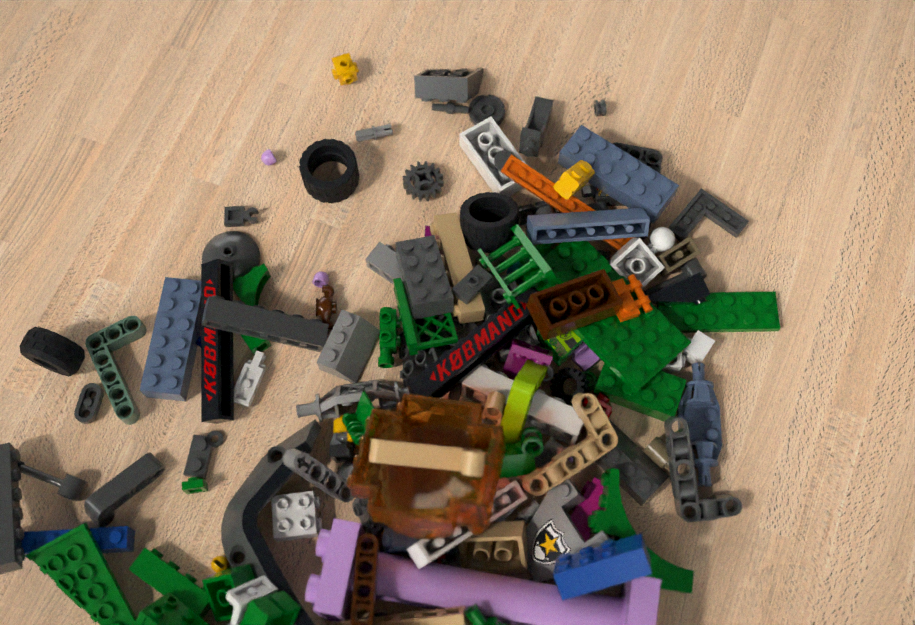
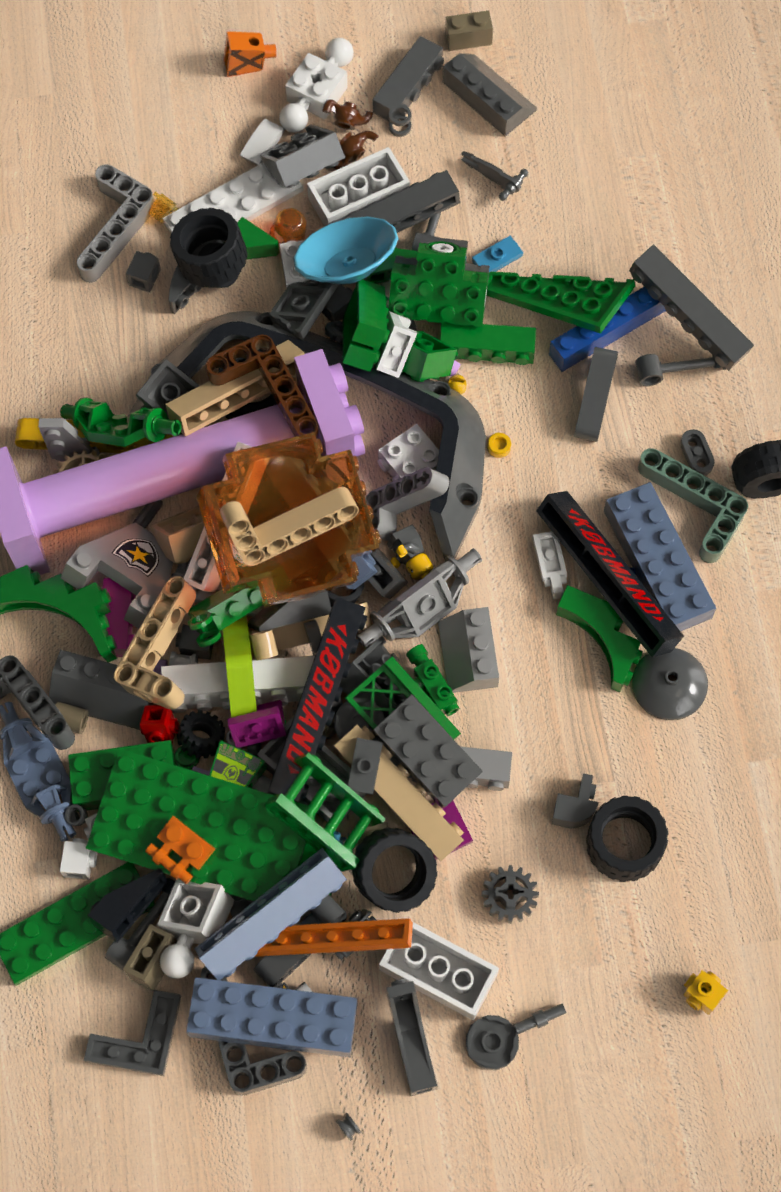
camera: 150 degrees right, 0 degrees up
(194, 485) = (530, 434): green plate -> none
(200, 454) = (548, 467): dark grey hinge -> none
(222, 494) = (499, 445): none -> yellow tile
(236, 216) = (697, 731): dark grey plate -> none
(264, 323) = (567, 610): dark grey brick -> none
(268, 157) = (714, 825): lavender hinge -> none
(320, 278) = (550, 711): lavender hinge -> none
(325, 306) = (522, 681): reddish brown piece -> none
(346, 207) = (574, 811): none -> dark grey brick
(356, 422) = (397, 563): green hinge -> none
(374, 132) = (611, 928): light grey axle -> none
(447, 85) = (560, 1049): dark grey wedge -> none
(501, 158) = (420, 957): dark grey tile -> none
(574, 179) = (317, 963): yellow brick -> none
(574, 304) = (232, 790): reddish brown brick -> none
(601, 566) = (67, 531): blue brick -> none
(689, 373) = (72, 816): none -> dark grey hinge

